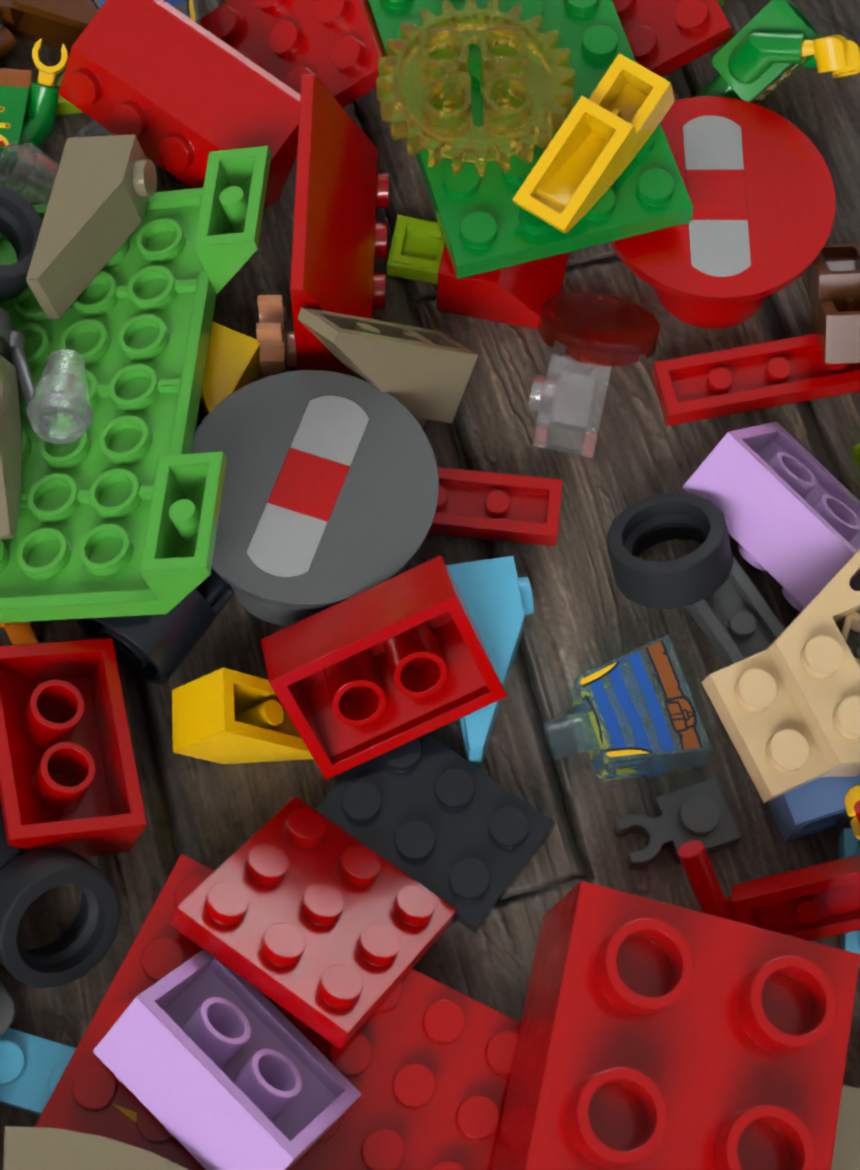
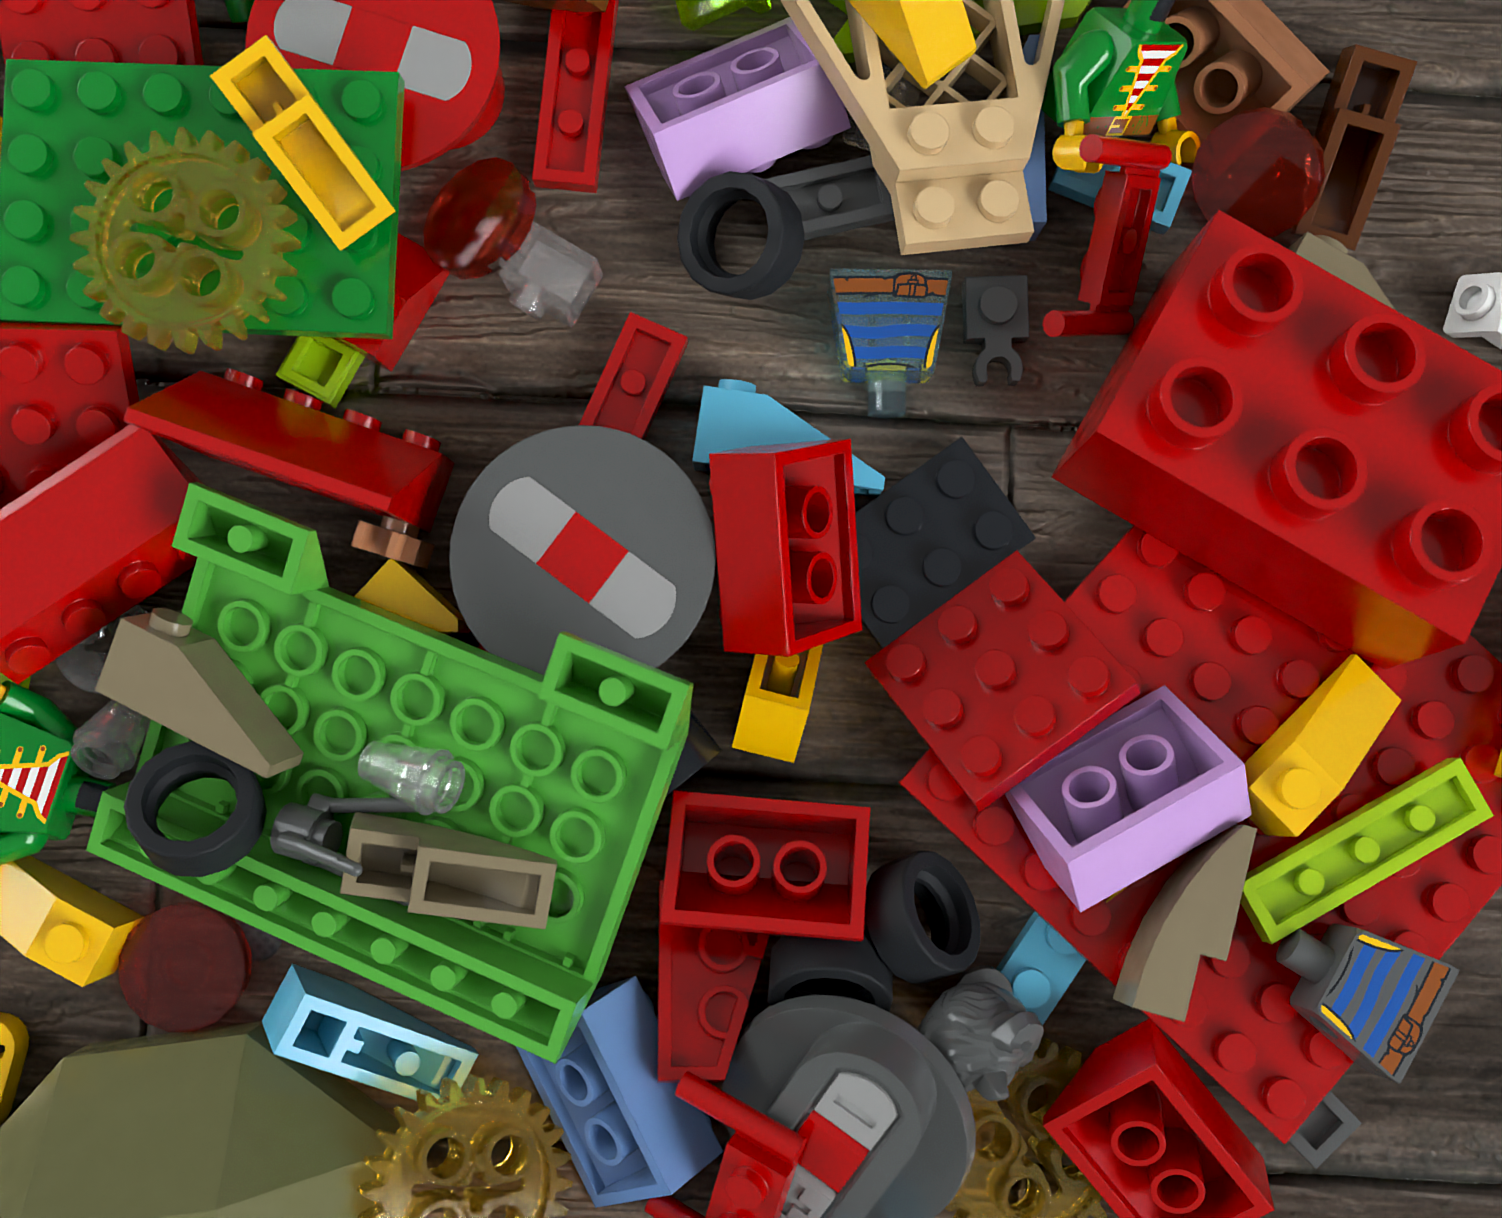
camera: 70 degrees left, 20 degrees up
(408, 362) = (466, 427): dark tan slope -> none

